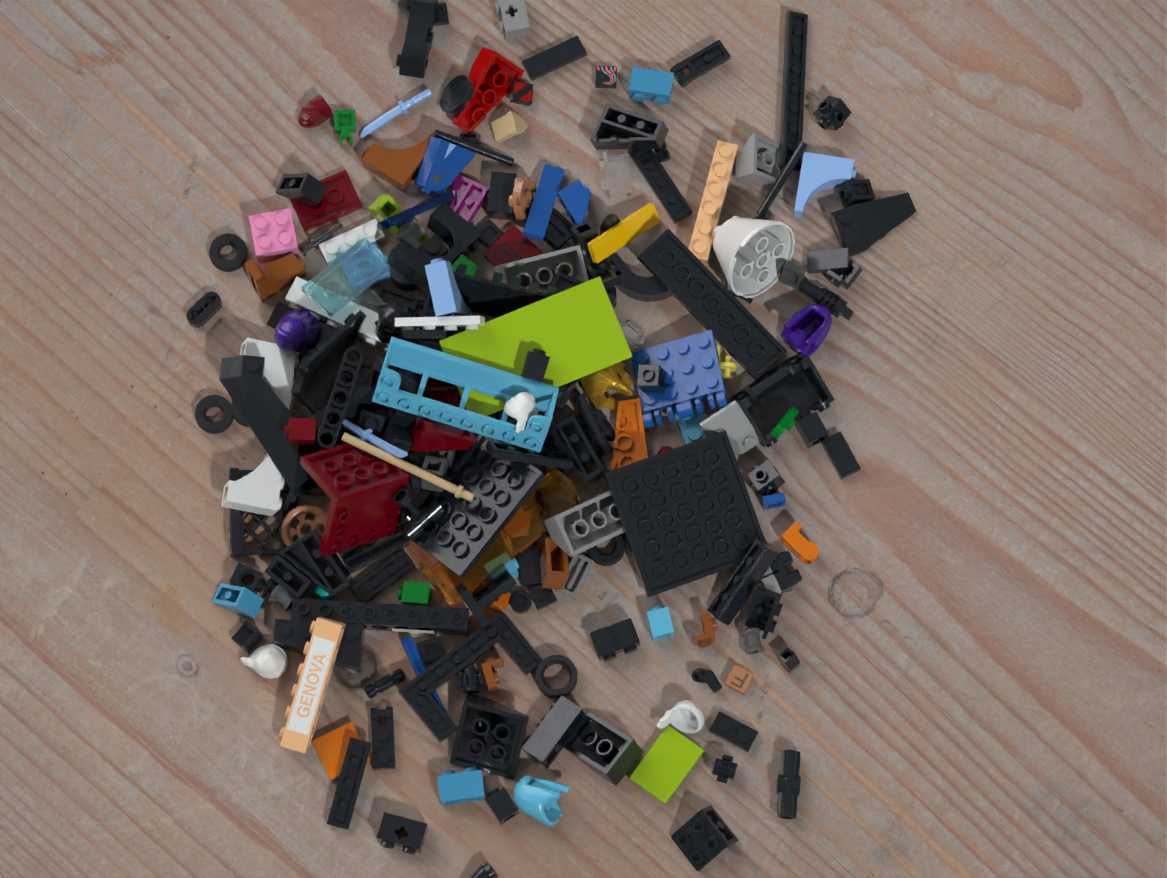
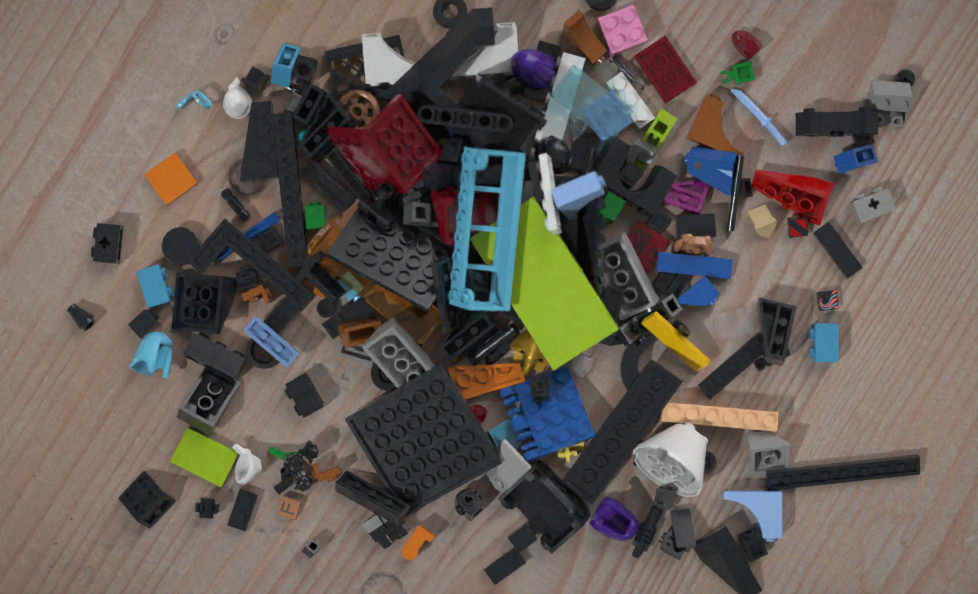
camera: 80 degrees right, 15 degrees up
(249, 708) = (182, 103): none -> medium azure piece
(301, 188) = (669, 46): black slope -> none
(301, 431) = (430, 90): dark red brick -> none
(312, 684) = (218, 144): light nougat brick -> none
(349, 783) = (142, 191): black tile -> none
(367, 436) = (438, 148): light blue sword -> none
(383, 739) = (187, 212): black plate -> none
(415, 210) = (663, 151): clear blue tile -> none
(420, 751) = (180, 245): none -> black tile
(456, 94) = (783, 168): black tile -> none
(459, 491) = (399, 238): tan bar -> none
(460, 24) = (855, 158): none -> blue slope
(521, 408) = (481, 281): white hat -> none
(535, 365) = (525, 286): black brick -> none
(548, 661) = (271, 341): none -> medium blue plate
(659, 623) = (325, 431): medium azure brick -> none
(690, 654) = (294, 463): none -> black plant
(700, 63) = (855, 384): black plate -> none
(752, 641) = (323, 514): dark grey bush -> none
(763, 609) = (348, 521): black bracket -> none
(773, 501) = (451, 513): blue tile -> none
(782, 179) = (753, 475): black bar -> none
(786, 422) = (522, 513): green plate -> none
(788, 784) = (203, 564): black piece -> none
(832, 113) = (824, 511): black brick -> none

